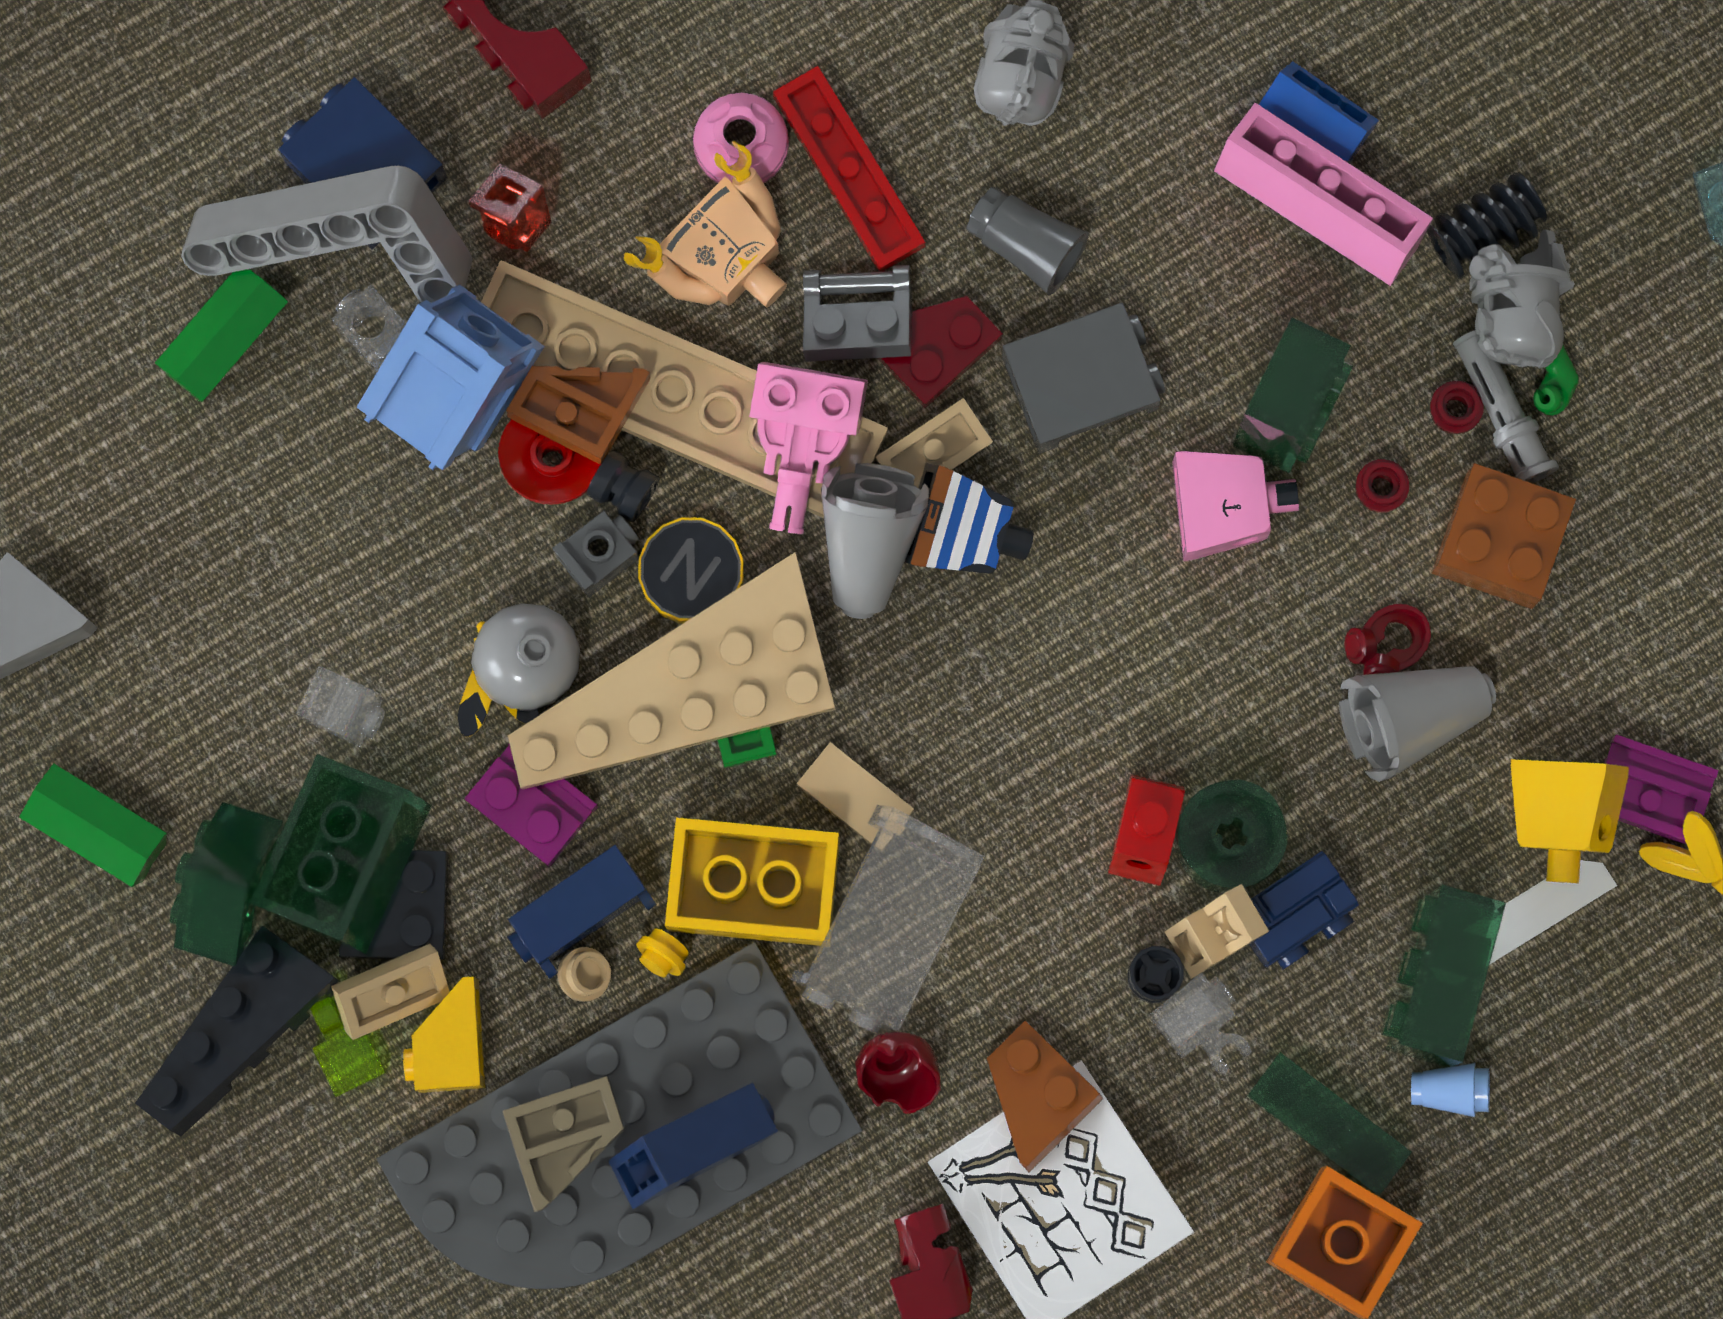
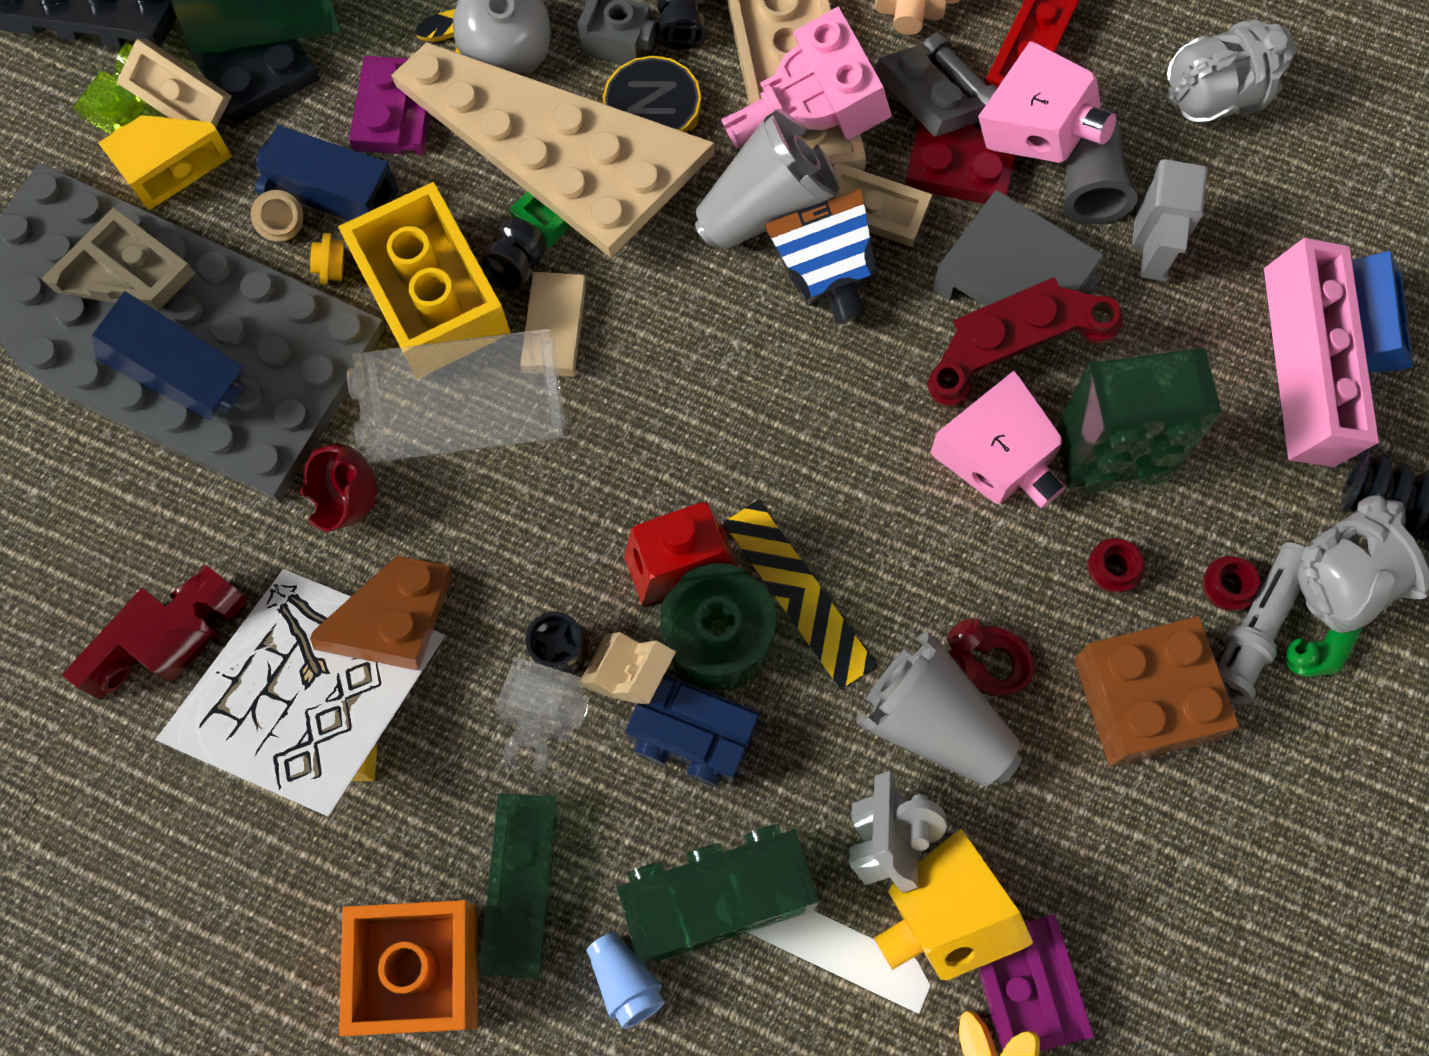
camera: 55 degrees right, 10 degrees down
(775, 794) = (512, 254): none -> black wheel
(961, 251) = (1045, 108): none -> bright pink torso
(1123, 223) = (1168, 215): none -> light grey piece
(1141, 423) = (1015, 327): none -> dark red plate
(1232, 752) = (799, 594): none -> sticker
(1484, 803) = (894, 833): none -> light grey hips

